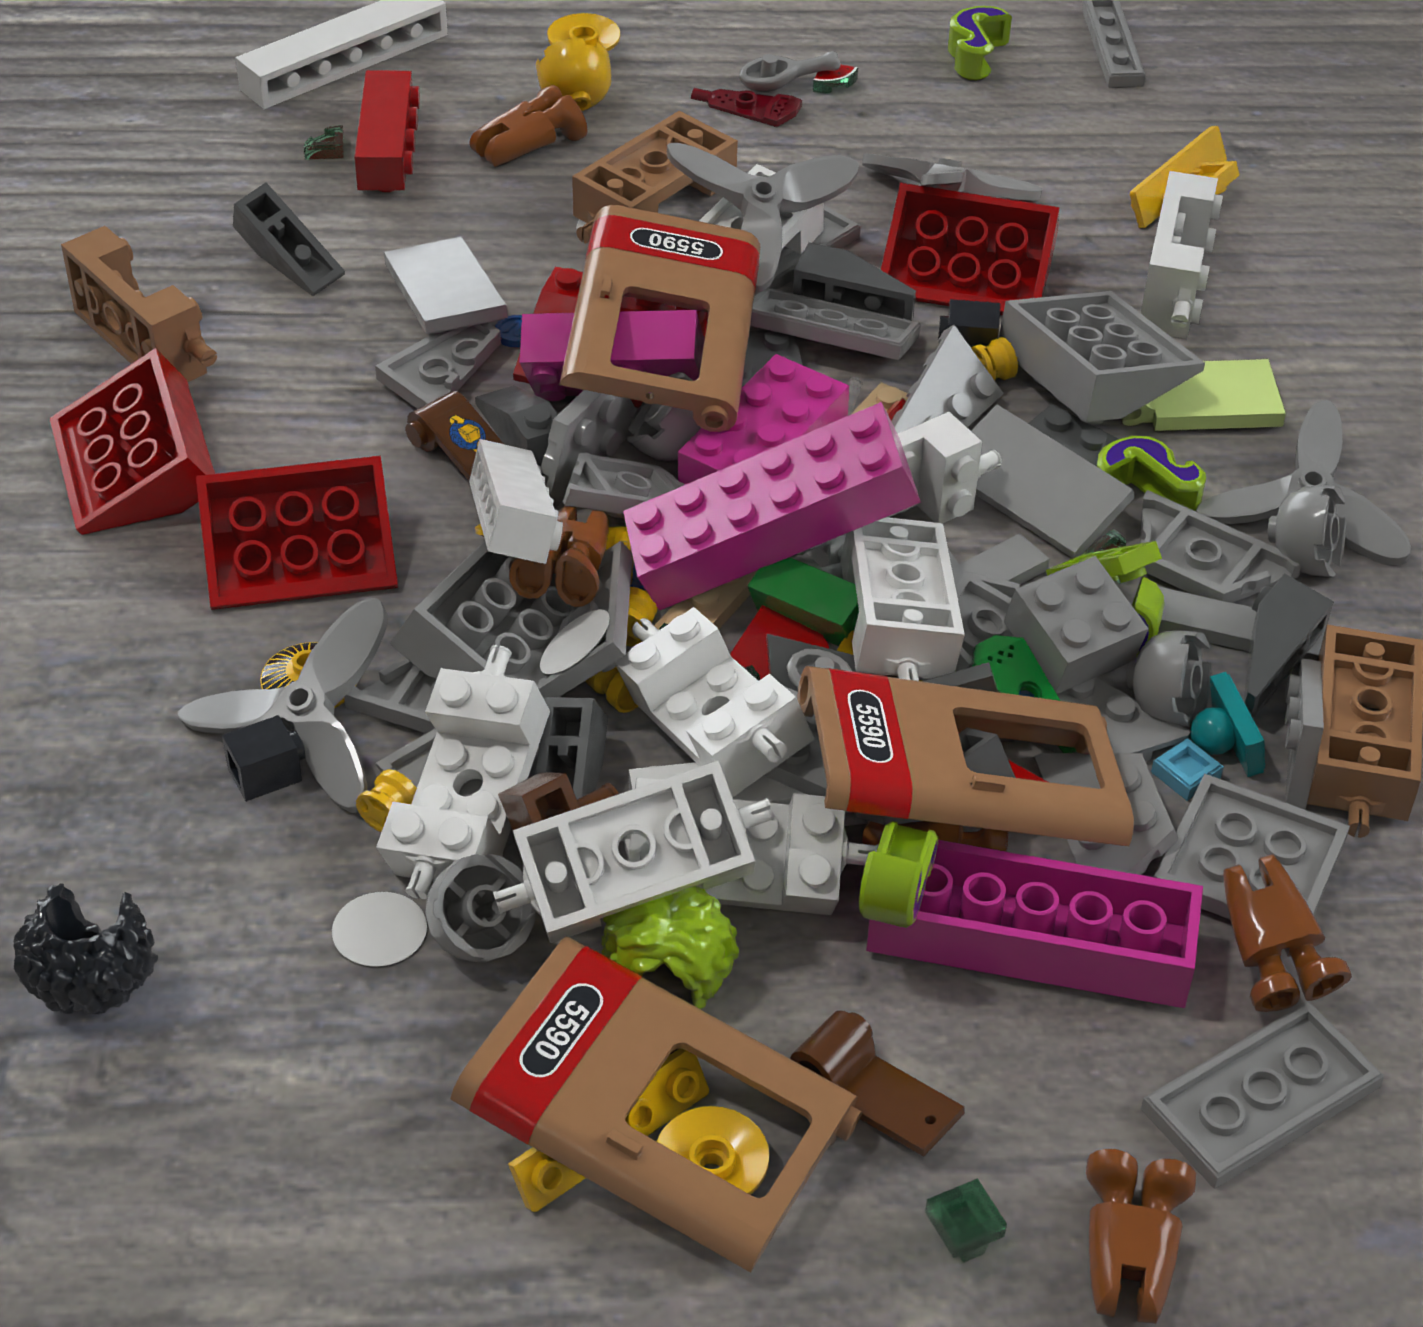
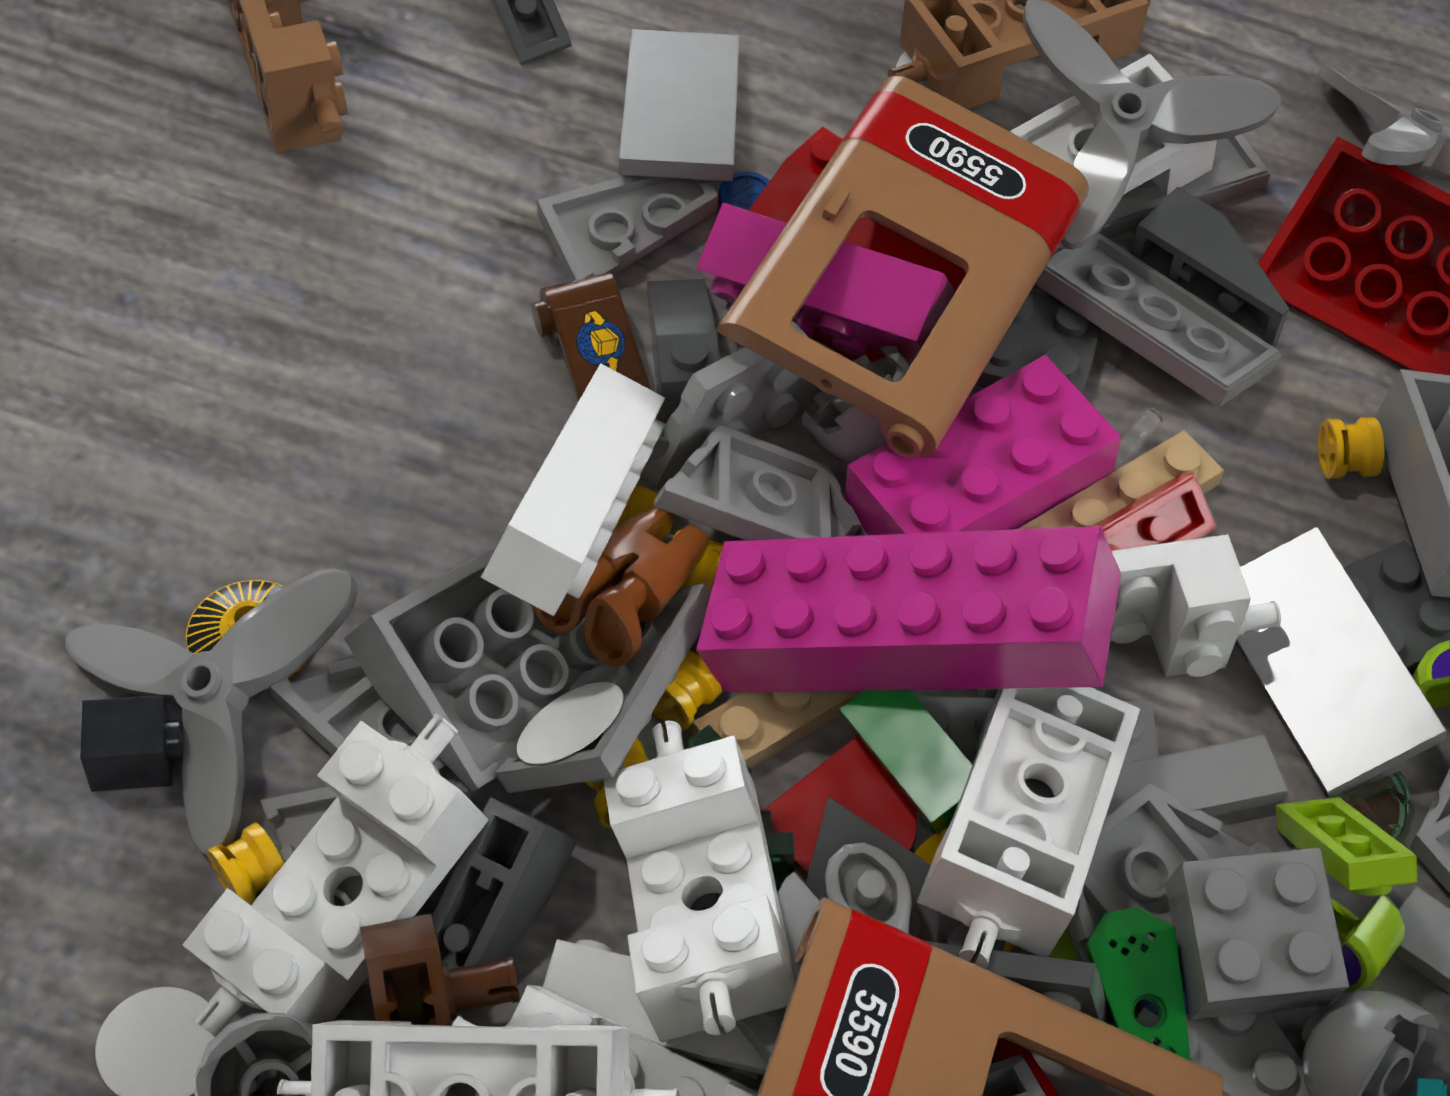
camera: 20 degrees right, 10 degrees up
(131, 447) = (194, 229): red slope -> none
(296, 532) = (324, 422): red slope -> none
(950, 383) = (1258, 488): light grey wing -> none
(974, 320) = (1343, 383): black brick -> none

